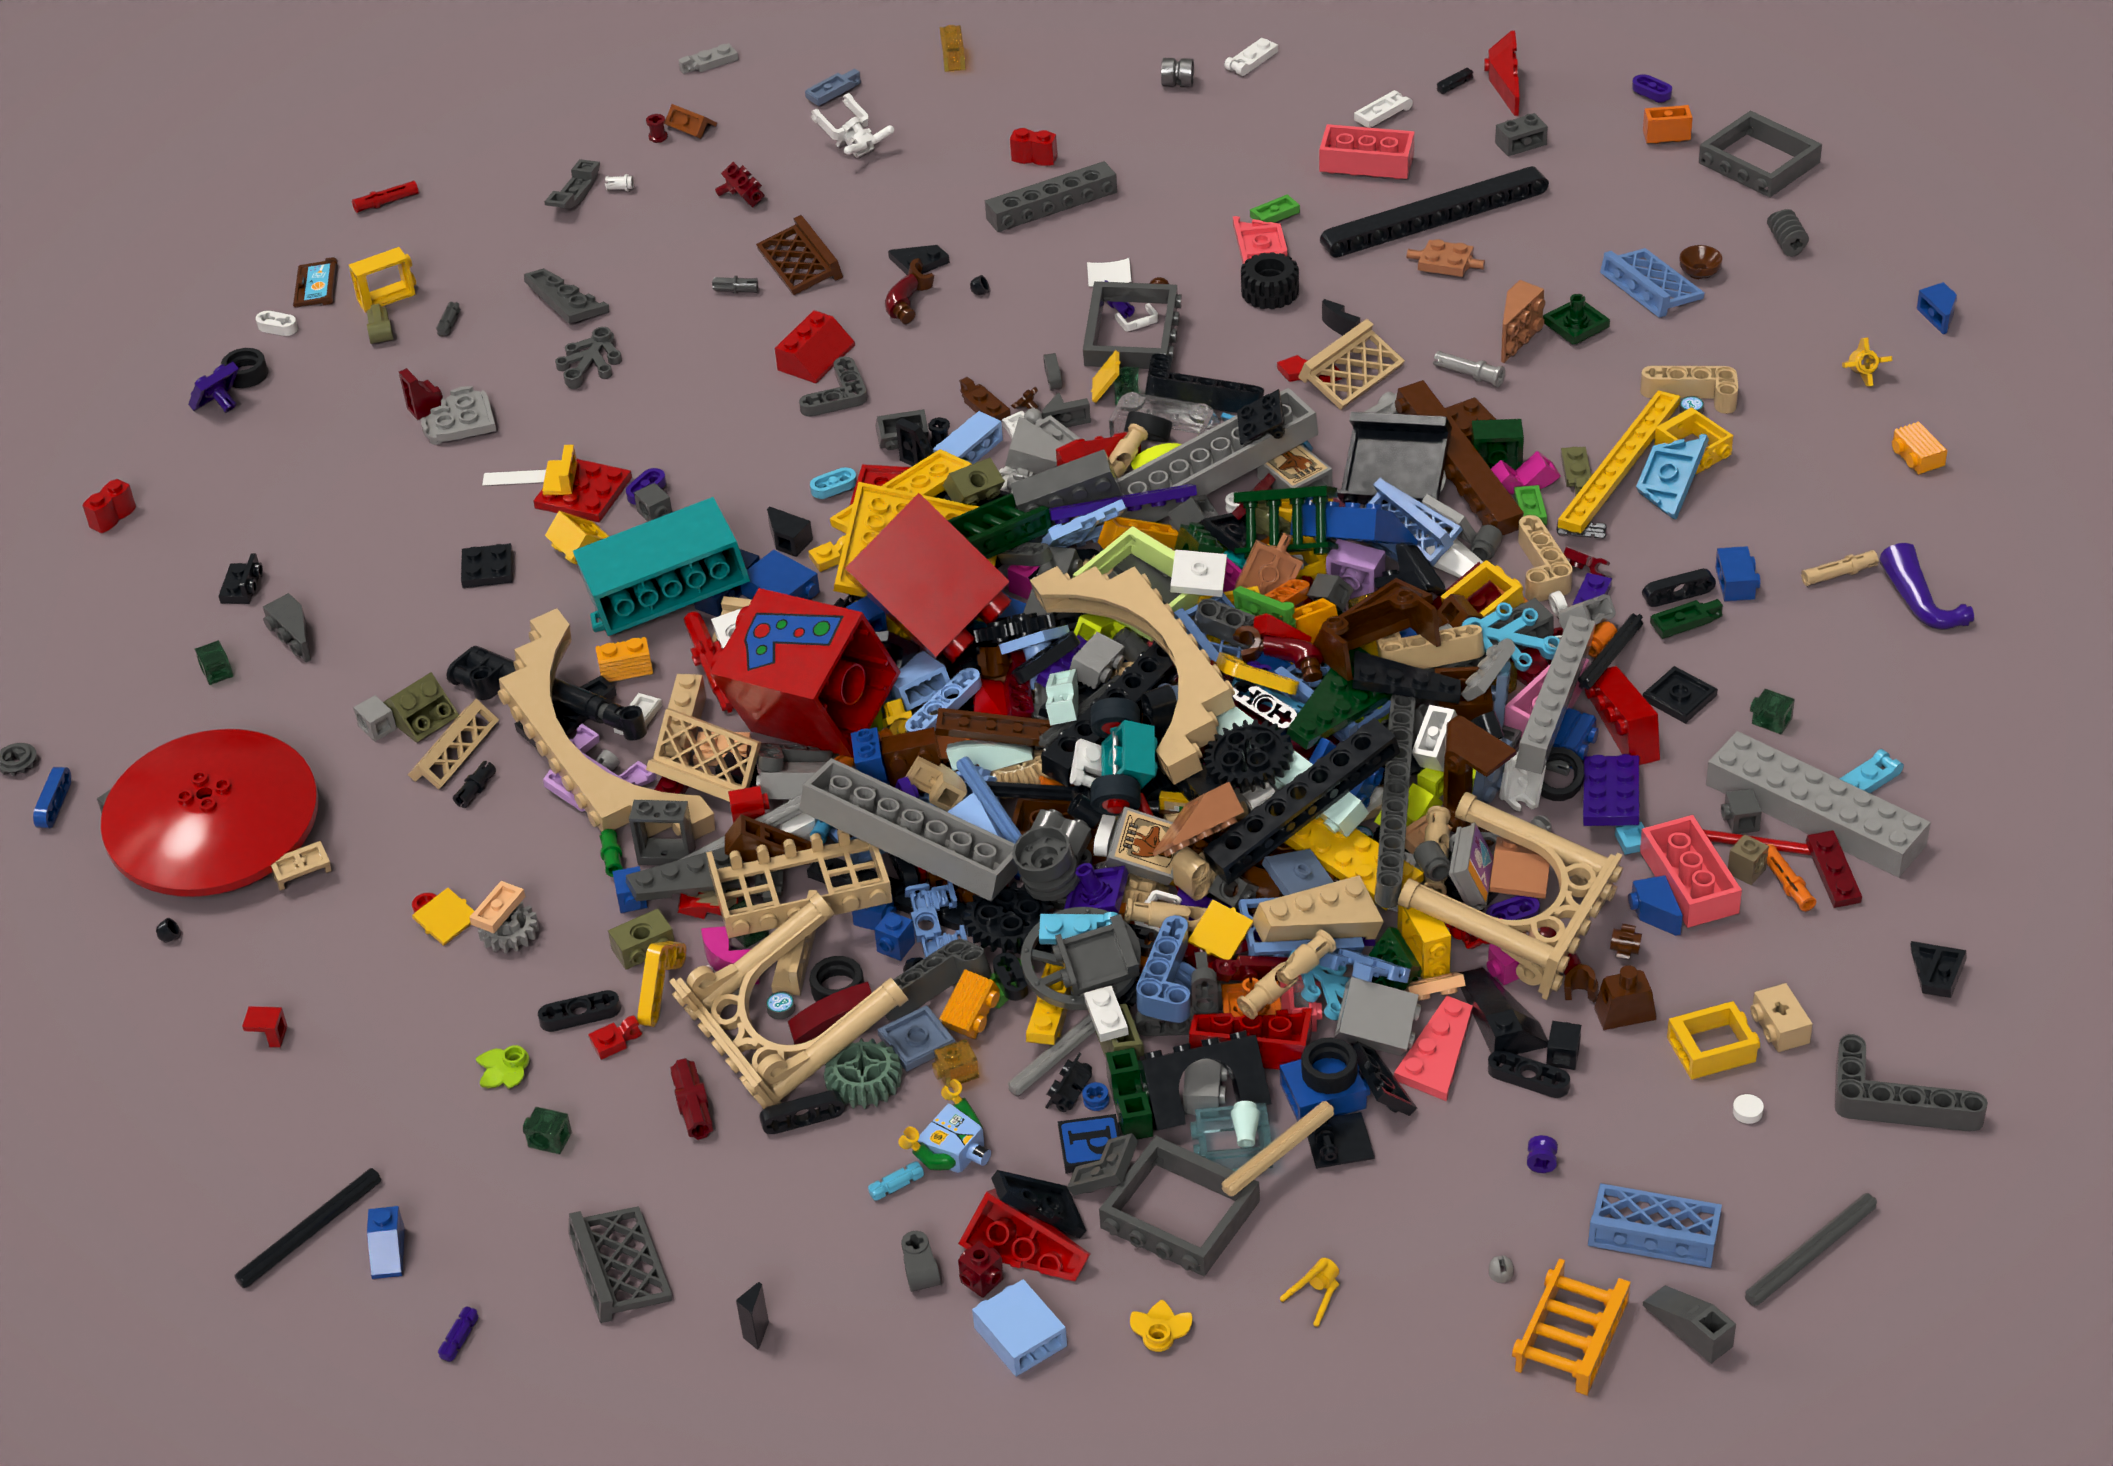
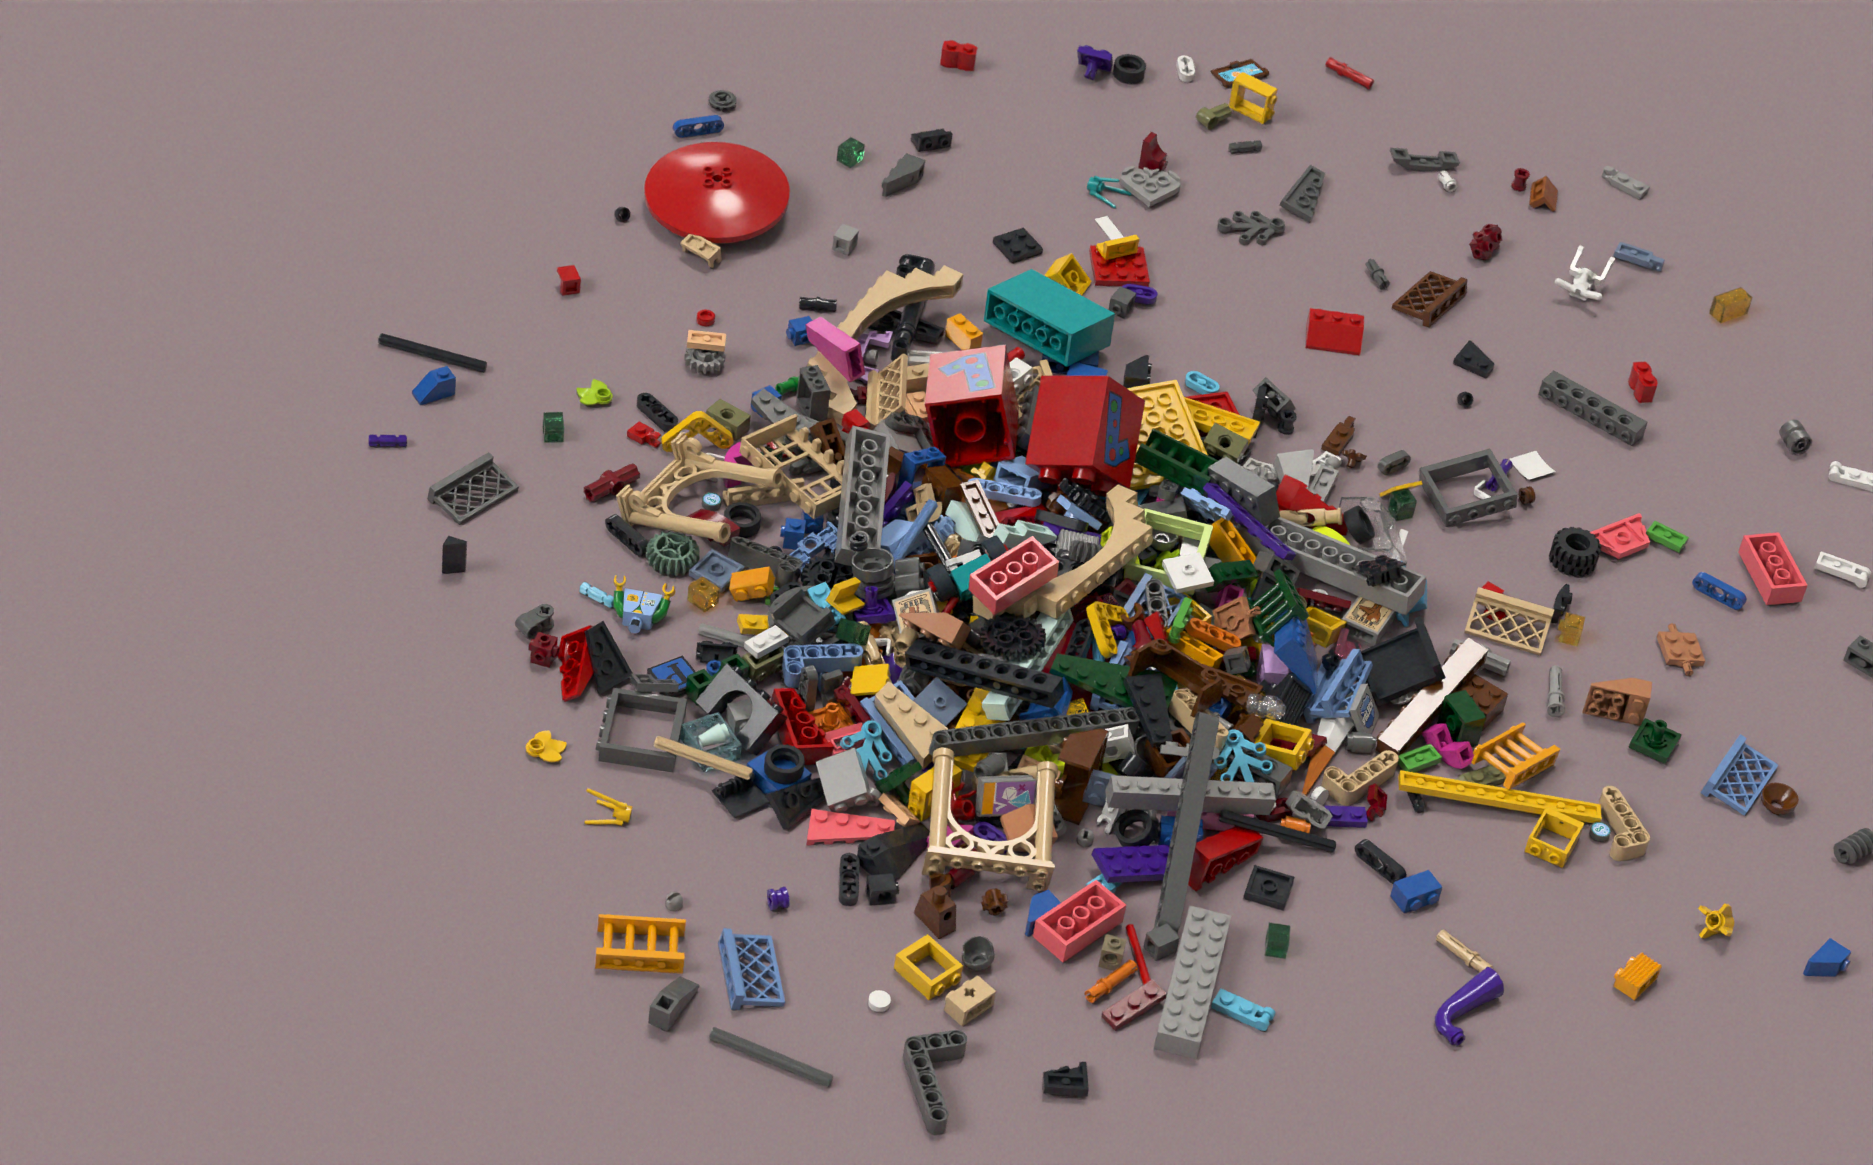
camera: 55 degrees right, 0 degrees up
(421, 708) = (866, 256): olive slope -> none
(432, 459) = (1096, 185): none -> teal plant
(444, 916) = (699, 323): yellow piece -> none
(446, 741) = (842, 277): tan fence -> none
(519, 813) = (797, 330): none -> blue brick
(606, 773) = (837, 348): none -> dark pink slope
(812, 403) = (1298, 367): dark grey beam -> none
(897, 299) = (1418, 357): piece -> none
(973, 438) = (1283, 438): light blue brick -> none
(1001, 846) = (858, 542): none -> black bush
(1019, 1327) = (509, 680): light blue brick -> none
(1068, 413) = (1352, 479): dark grey slope -> none
(1083, 899) = (843, 596): none -> yellow panel
(1128, 646) = (1083, 551): none -> dark grey gear
(1145, 914) = (853, 631): none -> clear green brick
(1179, 706) = (1013, 575): none -> coral brick
(1213, 392) = (1410, 524): black beam -> none
(1300, 961) = (859, 722): tan piece -> none
(1365, 966) = (883, 765): medium blue piece -> none
(1386, 322) = (1571, 629): none -> clear yellow brick
(1389, 196) = (1709, 580): none -> blue beam
(1433, 211) = (1733, 629): black beam -> none
(1441, 580) = (1265, 706): none -> clear brick
(1575, 410) = (1522, 769): none -> light orange fence
(1609, 706) = (1187, 821): none -> dark grey beam
(1670, 473) = (1502, 828): dark azure wing -> none
(1685, 617) = (1351, 873): dark green hinge -> none
(1709, 983) = (978, 953): none -> dark grey hair

